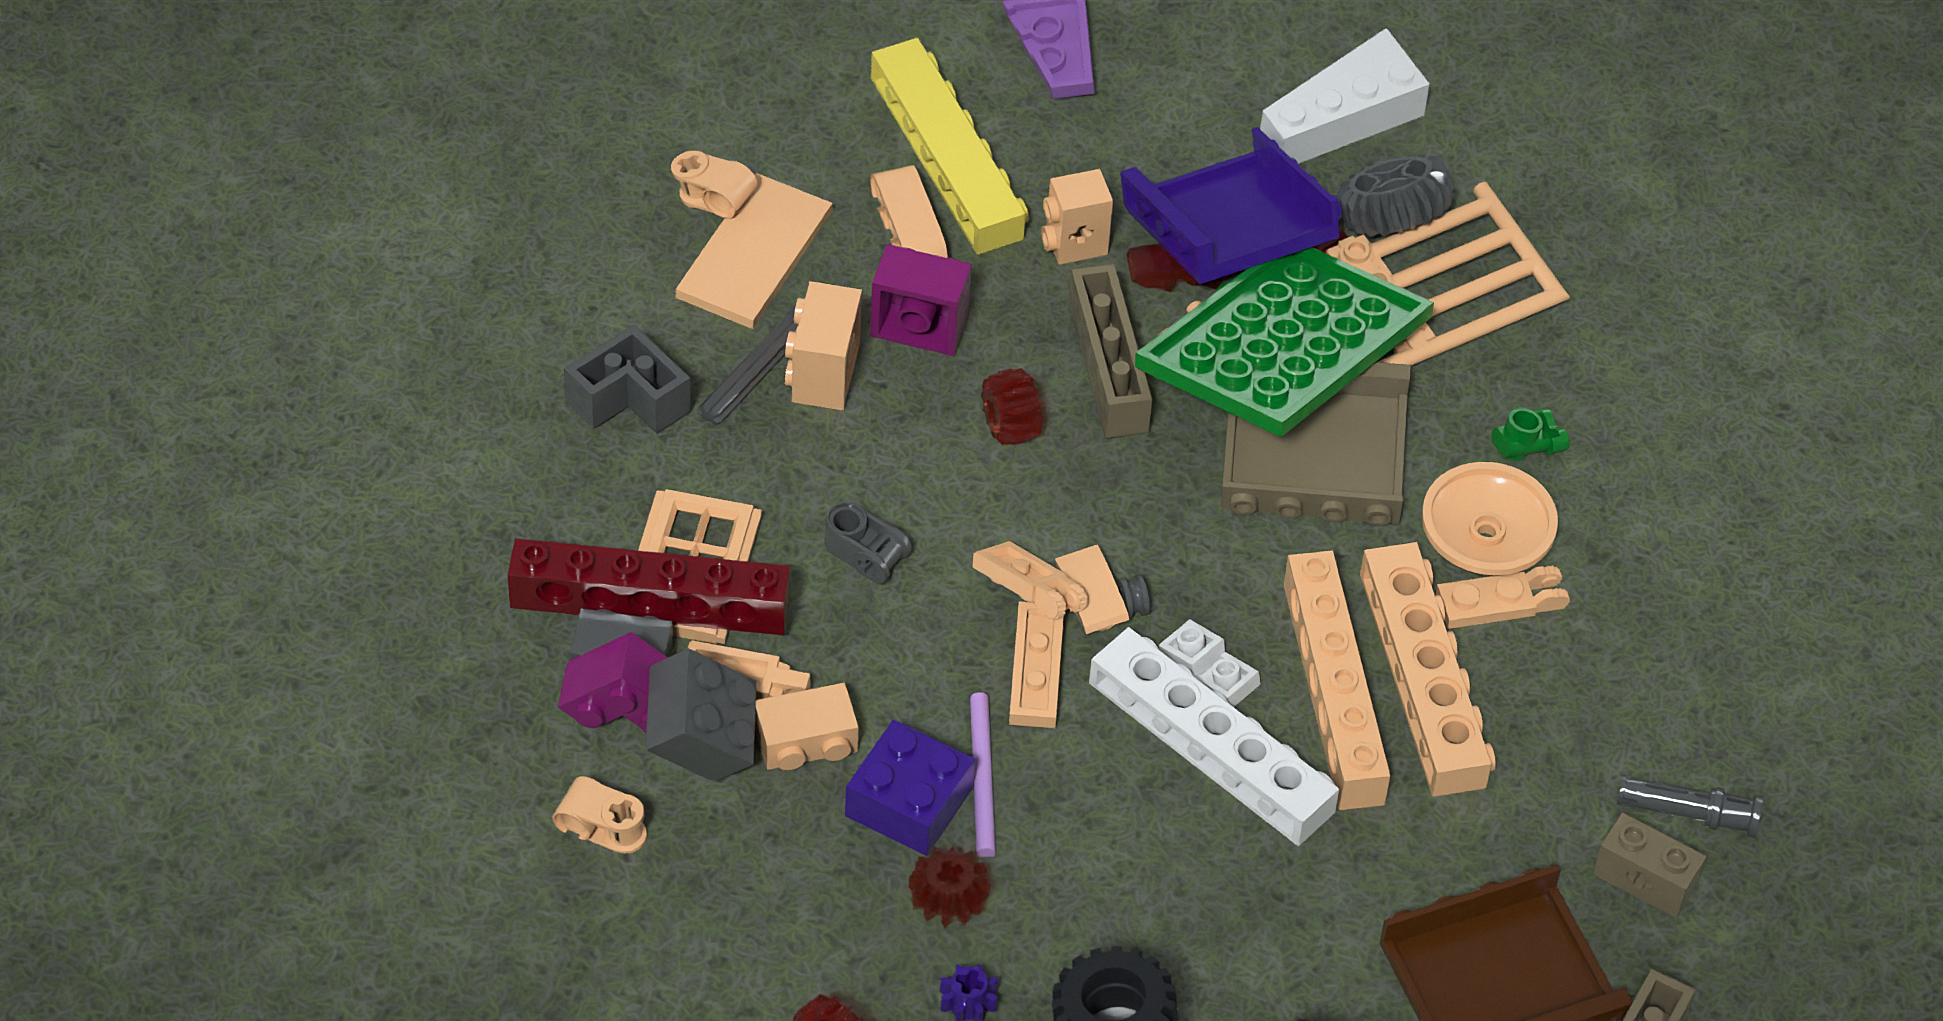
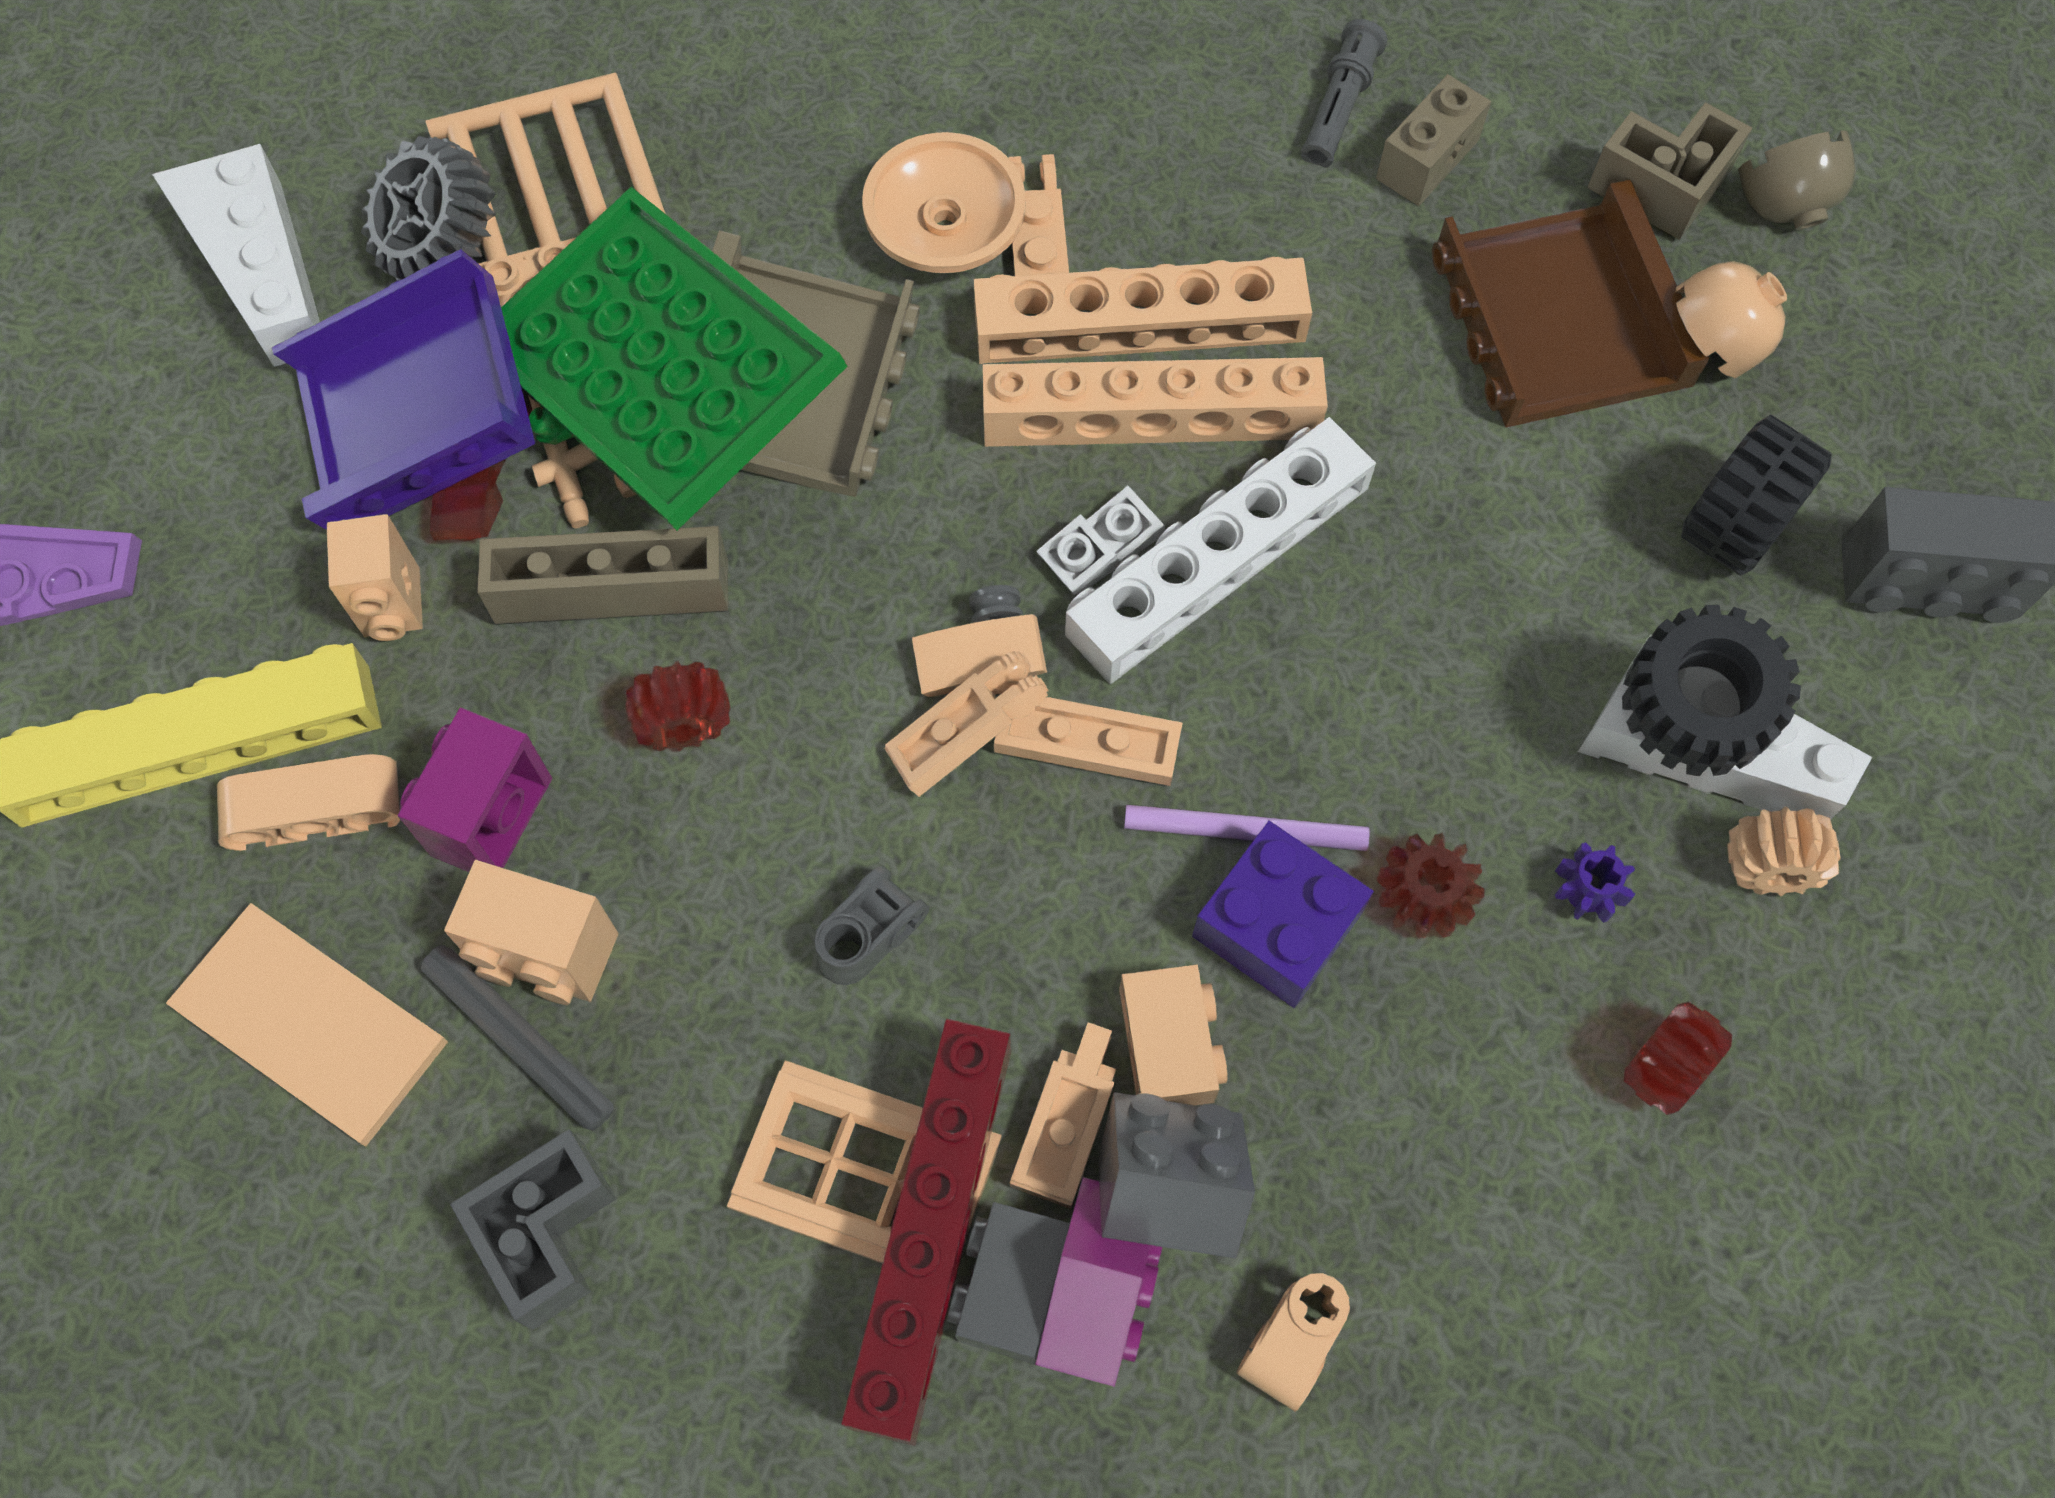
camera: 80 degrees left, 15 degrees up
(712, 182) = (180, 1064): light nougat piece -> none
(1529, 433) = (809, 150): green plate -> none

